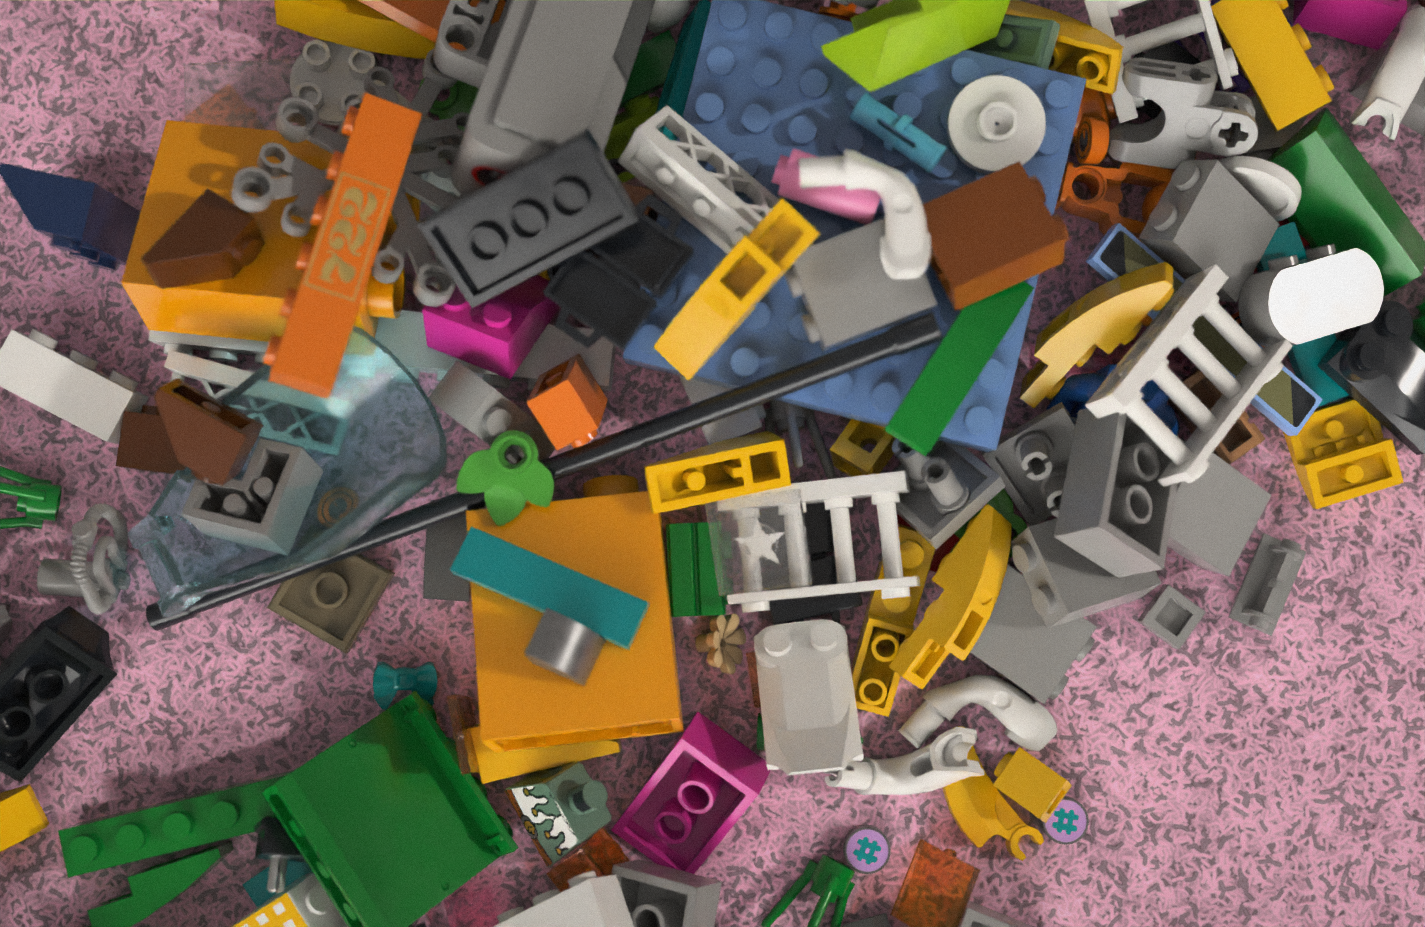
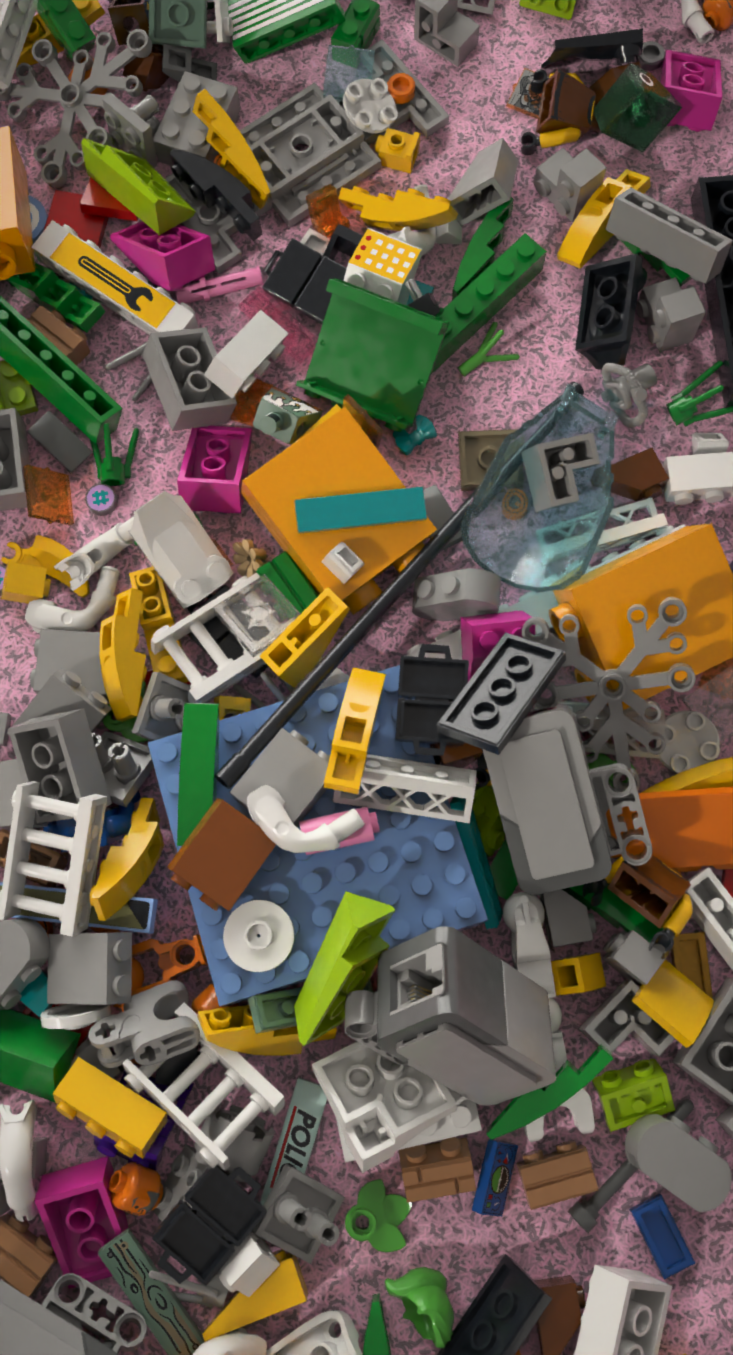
camera: 155 degrees right, 10 degrees down
(39, 434) = (709, 443): none -> white slope
(204, 244) = (679, 569): reddish brown slope -> none
(205, 432) = (609, 478): reddish brown slope -> none
(242, 744) = (480, 357): none -> bright green plant
(344, 247) = (597, 613): orange brick -> none
(507, 484) = (424, 555): bright green plate -> none
(564, 647) = (330, 478): flat silver brick -> none
(568, 403) = (417, 621): orange brick -> none
(613, 533) = (342, 562): none -> white slope
(870, 113) = (314, 890): medium azure pin -> none
(1092, 140) = (196, 984): orange tile -> none

